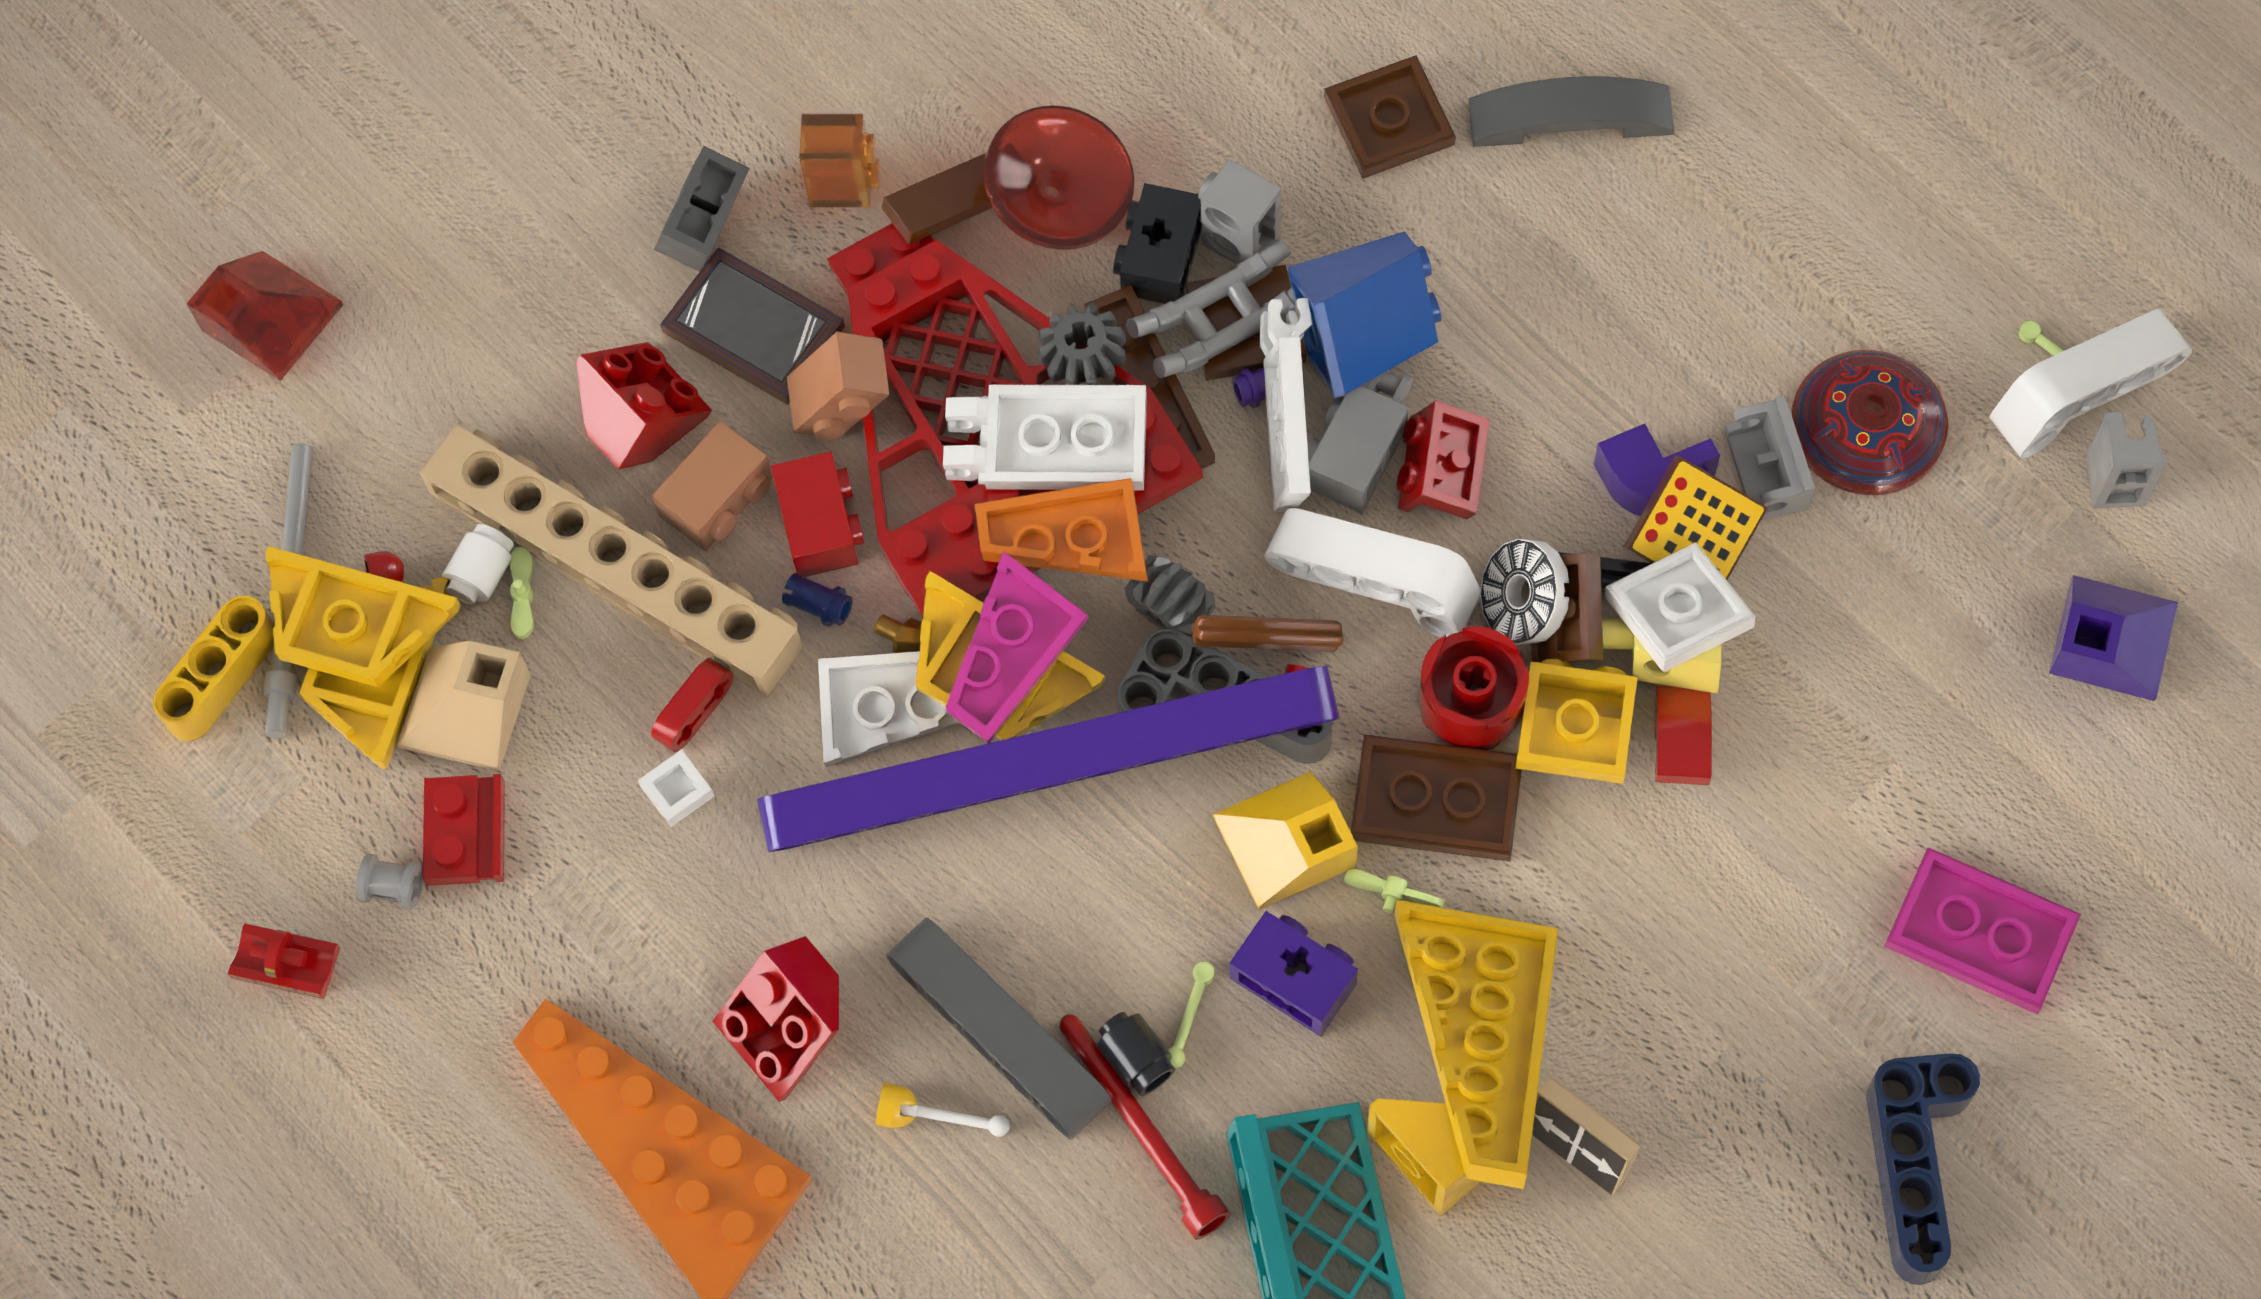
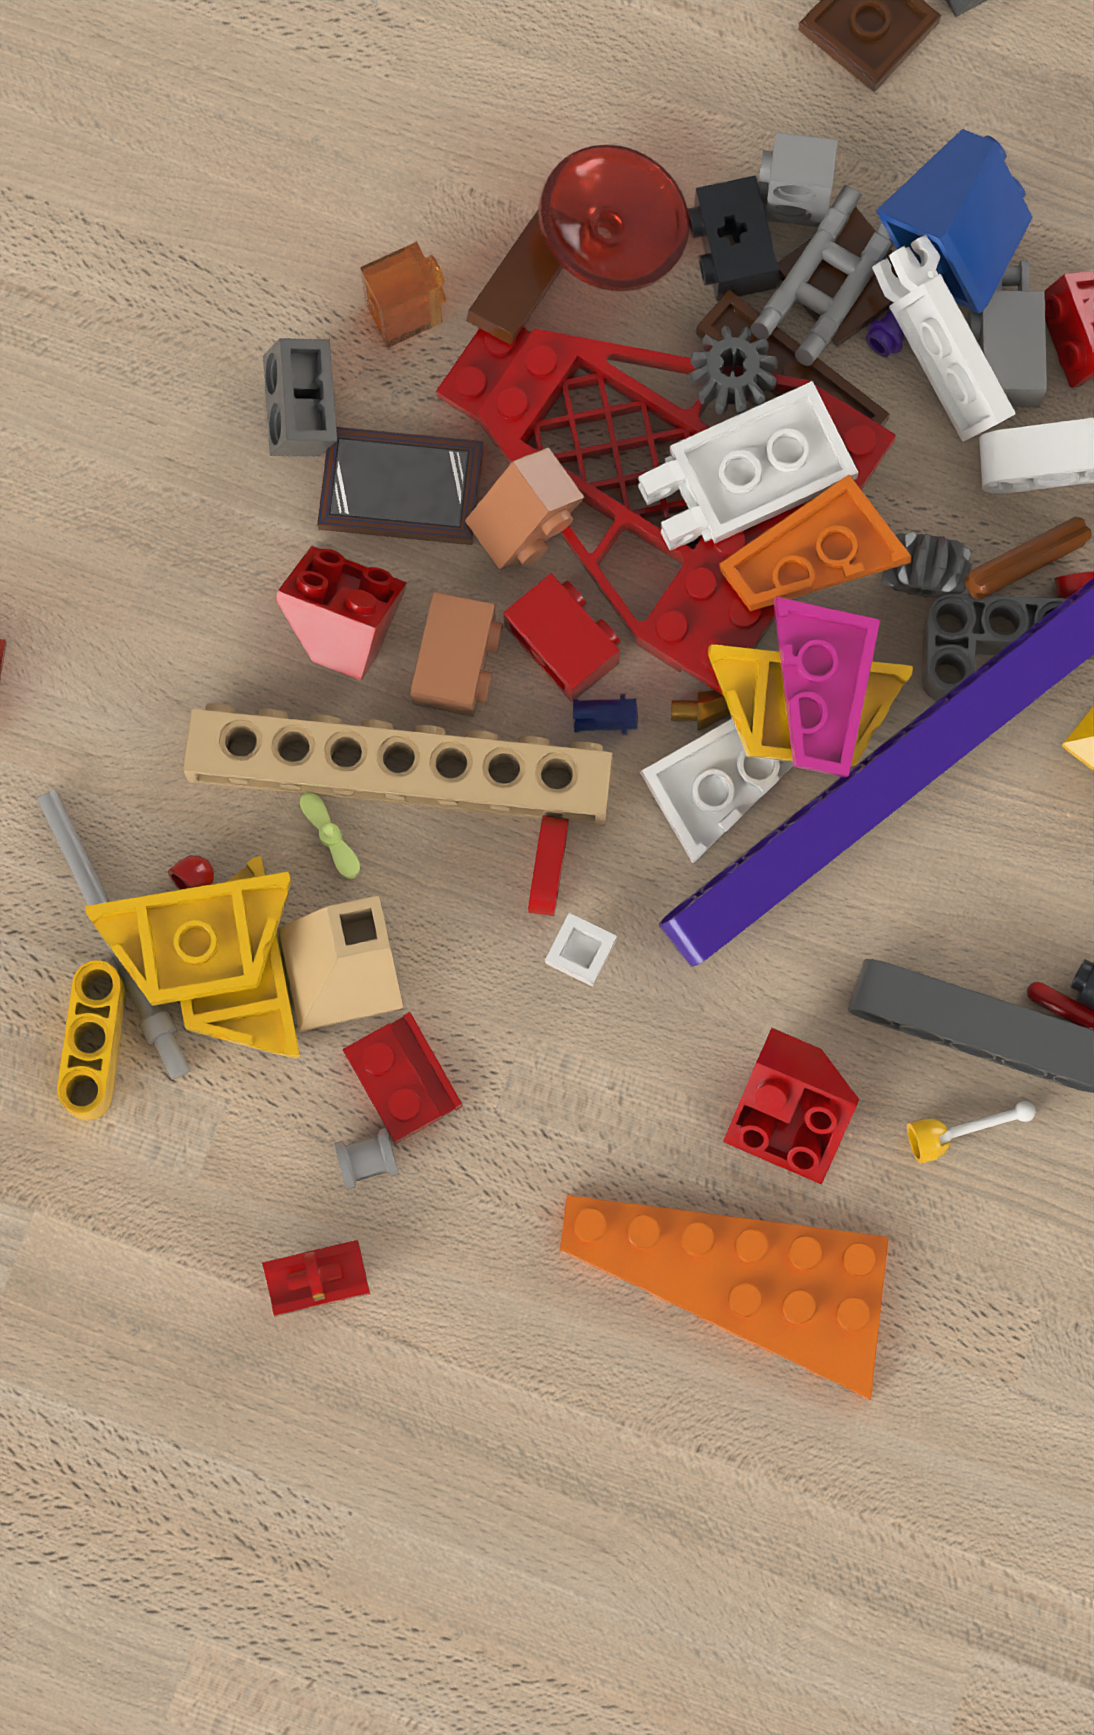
camera: 30 degrees left, 10 degrees up
(478, 564) = (279, 829): white brick -> none

